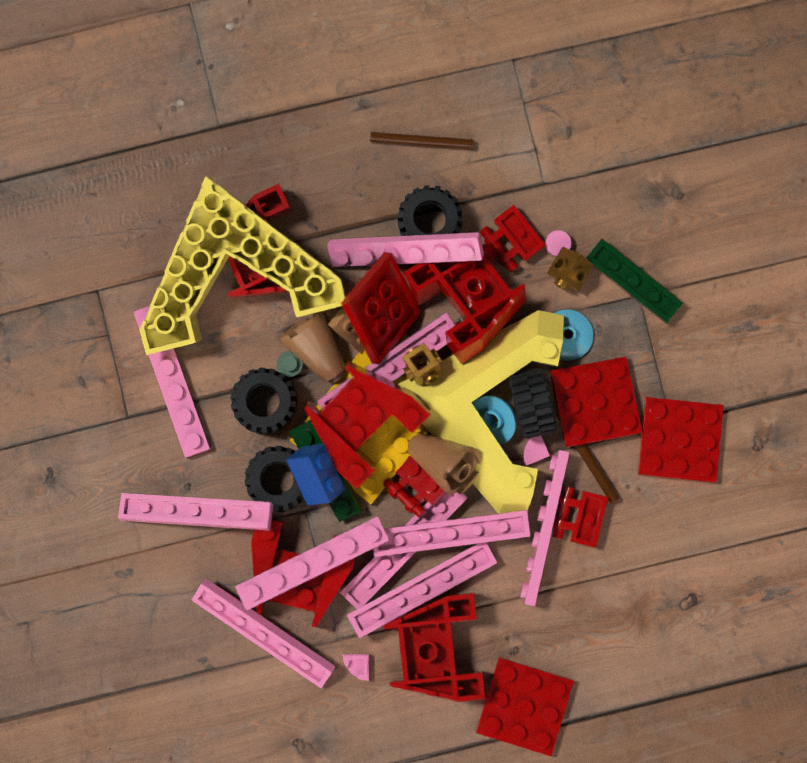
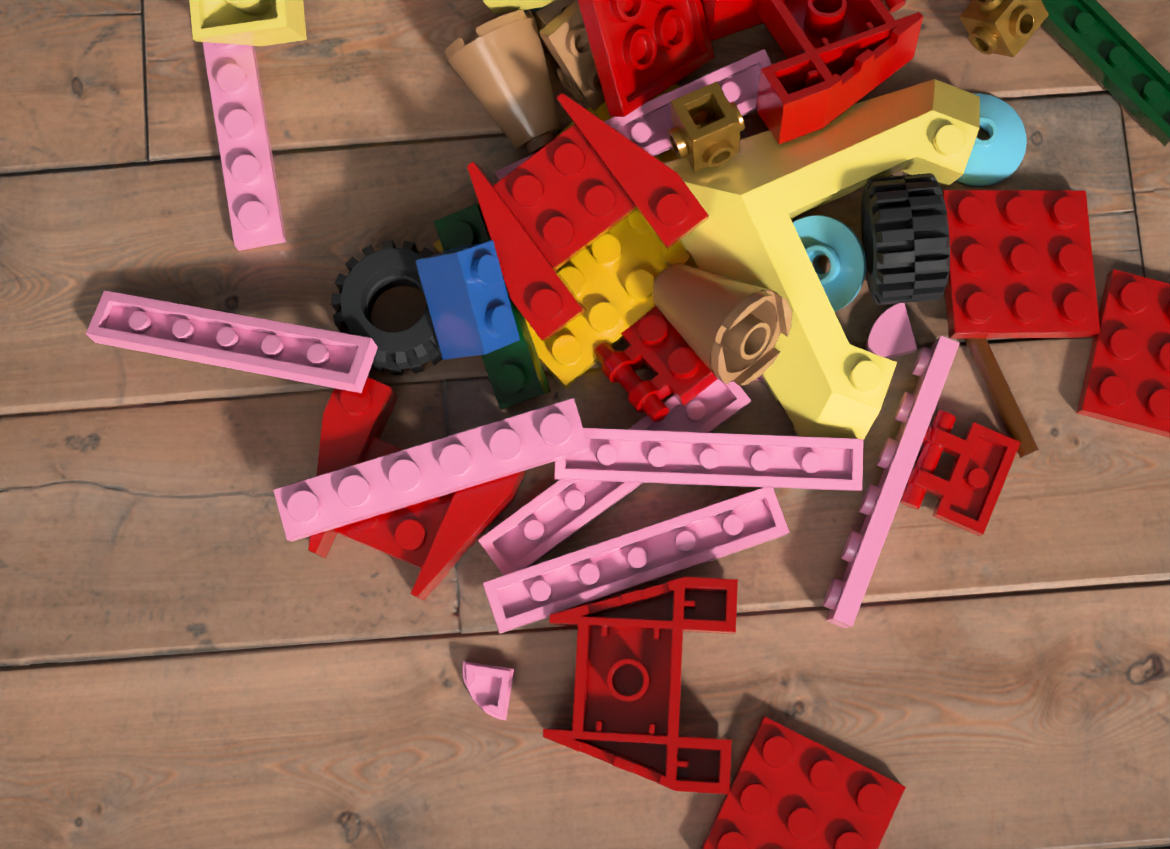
camera: 10 degrees right, 5 degrees down
(245, 387) = (389, 126): black tyre -> none
(263, 633) = (319, 595): bright pink plate -> none
(289, 364) = (457, 109): sand green plate -> none

